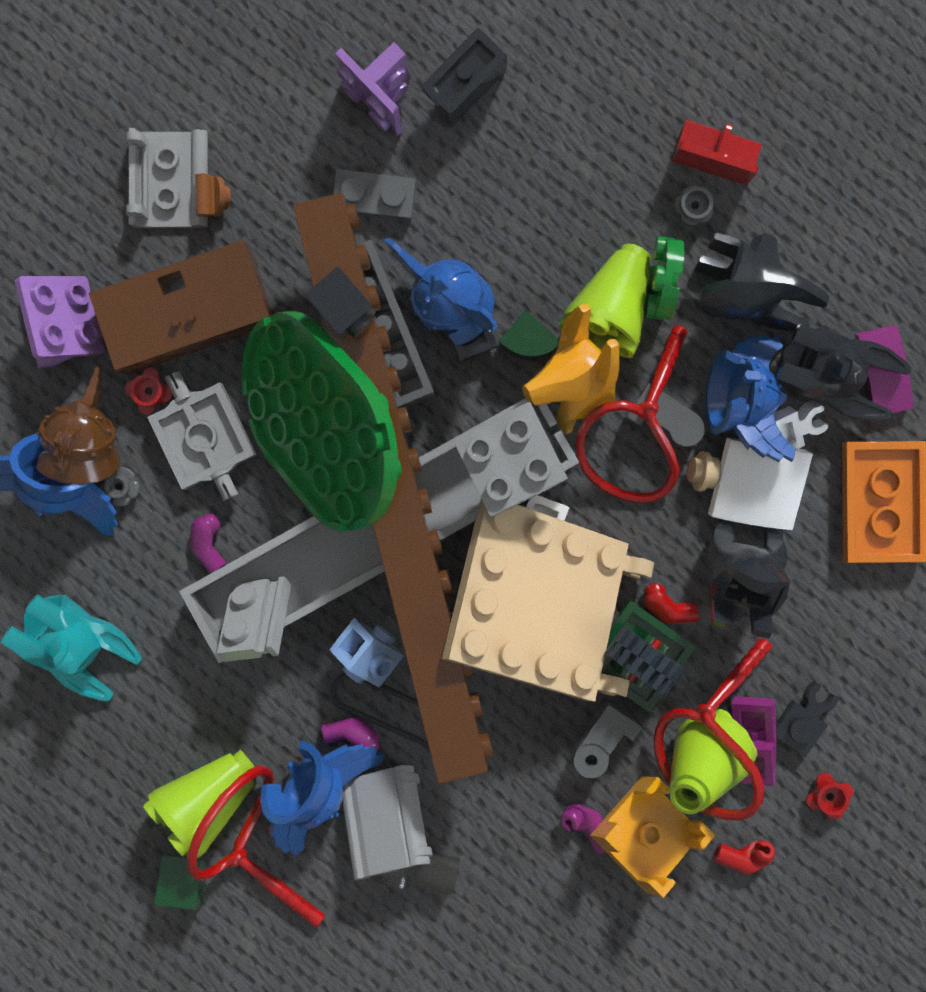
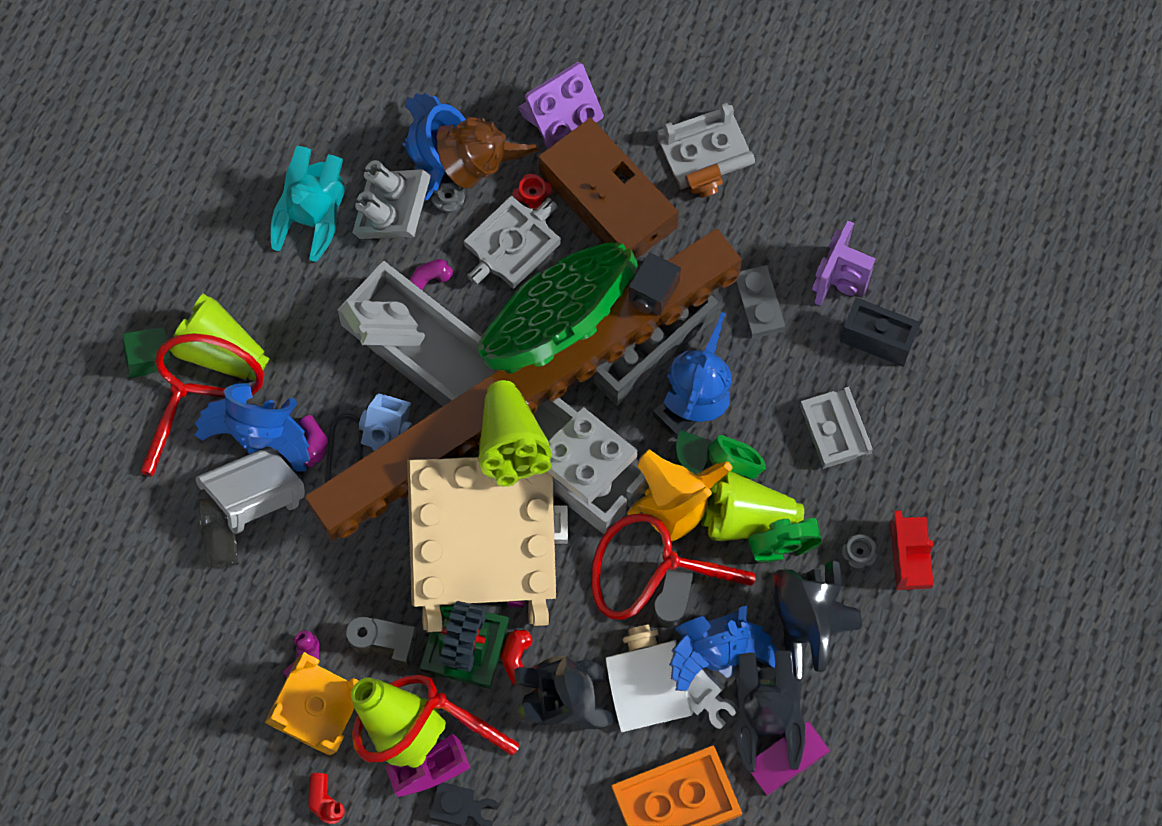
camera: 75 degrees right, 20 degrees down
(106, 555) = (390, 202): none -> light grey plate
(463, 537) = (510, 437): none -> lime cone
(550, 293) = (741, 456): none -> green plate
(551, 172) = (836, 427): none -> light grey plate

